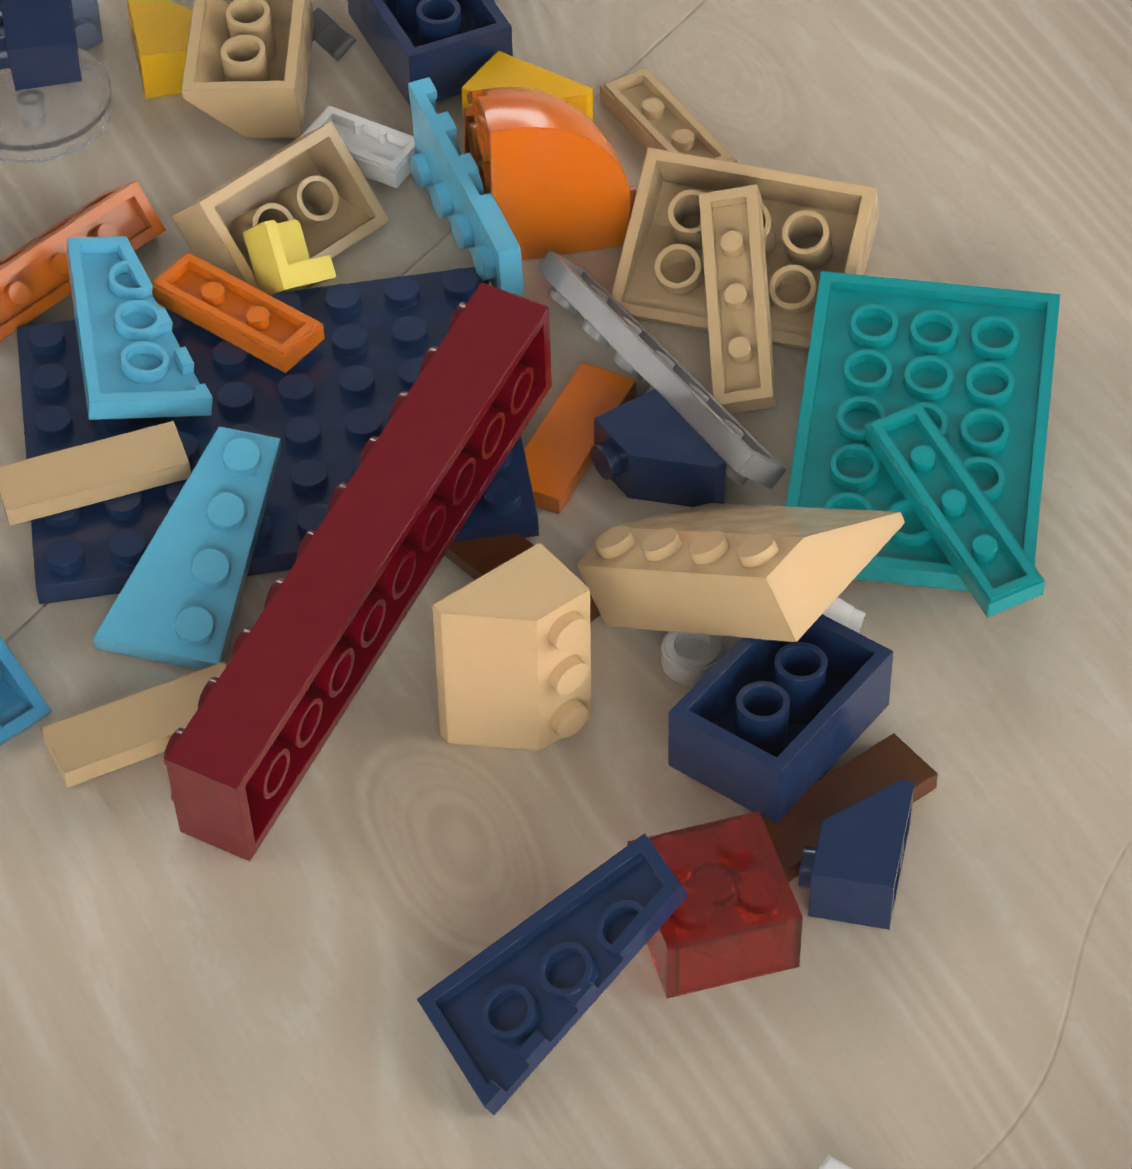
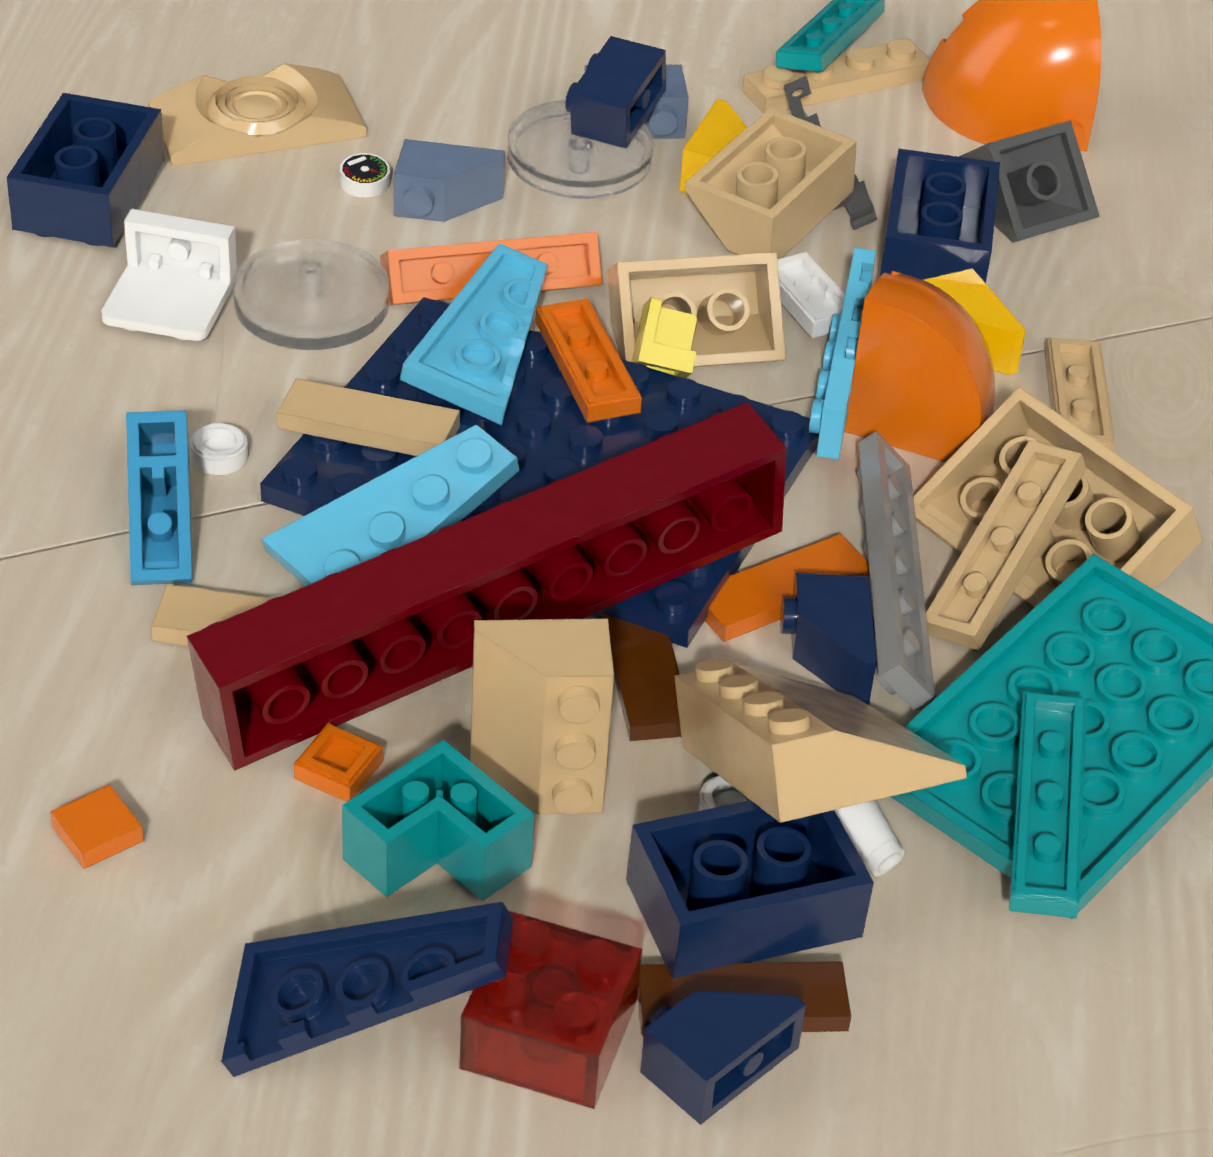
camera: 30 degrees right, 5 degrees down
(184, 977) = (96, 826): none -> orange tile
(338, 802) = (338, 762): none -> orange tile
(494, 792) = (442, 814): none -> teal brick

